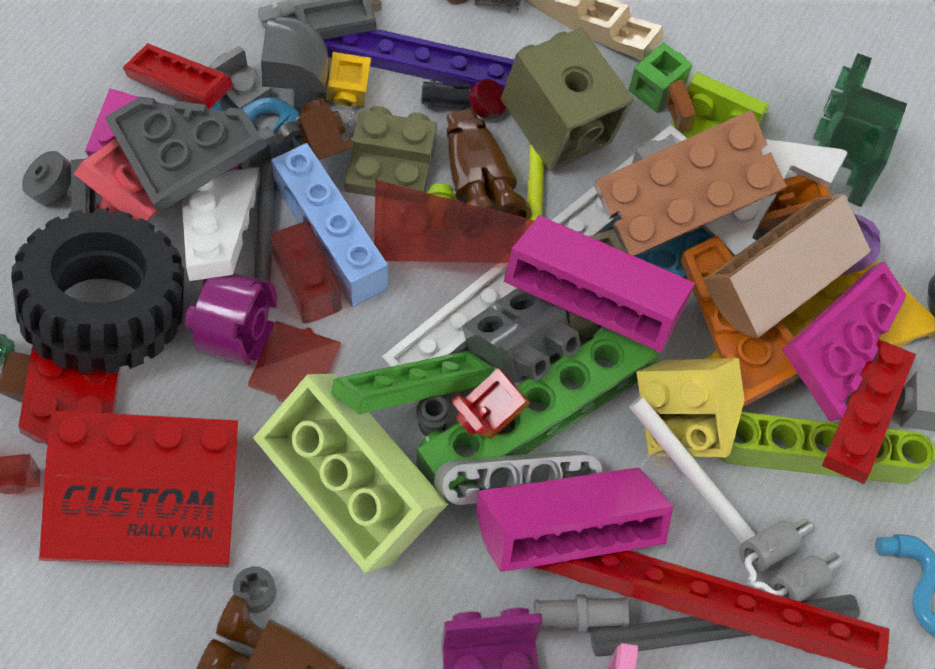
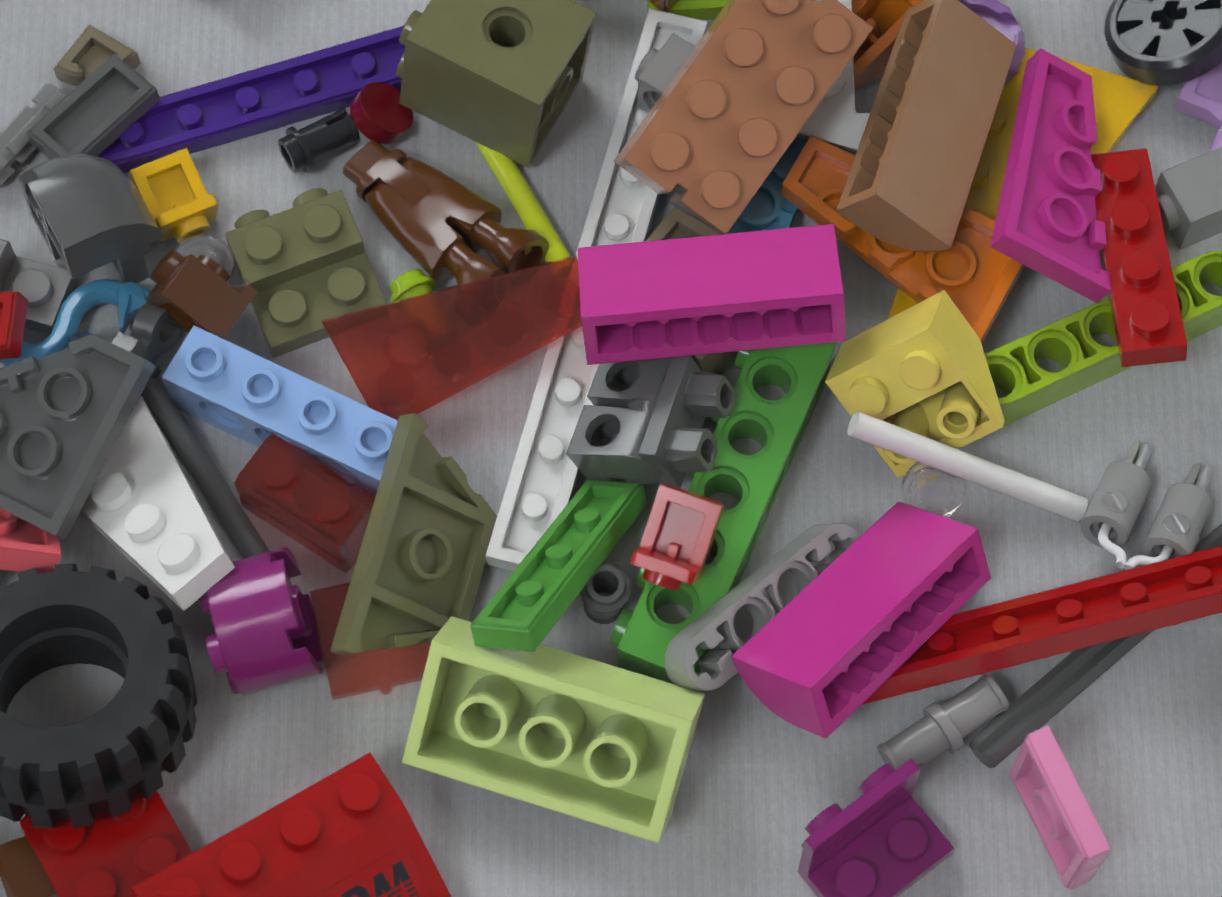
camera: 25 degrees left, 5 degrees up
(345, 328) = (418, 549): none -> olive wing

